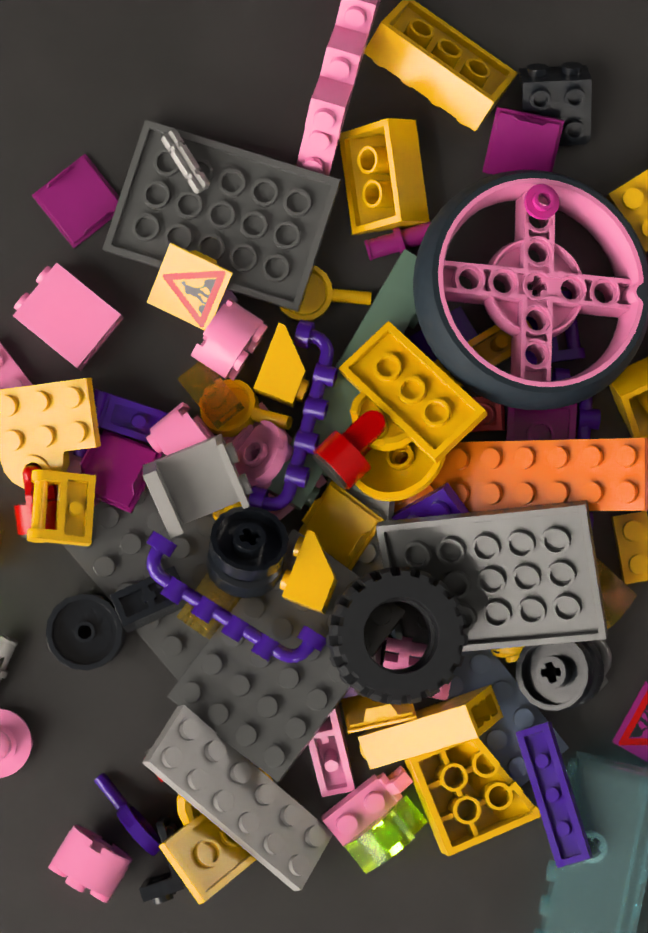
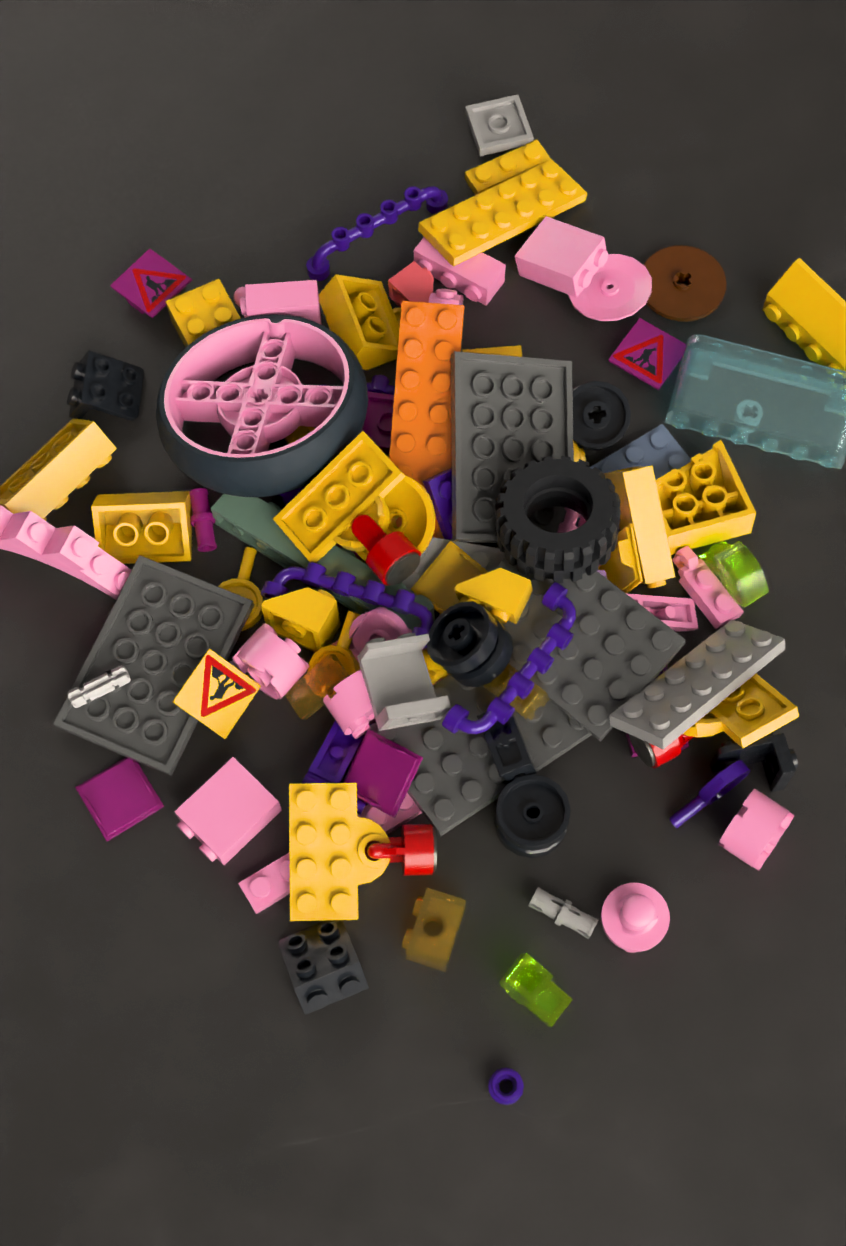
camera: 80 degrees left, 20 degrees down
(73, 509) = (411, 808): yellow plate -> none
(522, 142) = (132, 415): magenta piece -> none
(533, 206) = (187, 381): dark pink plate -> none
(554, 794) = (704, 427): dark purple plate -> none

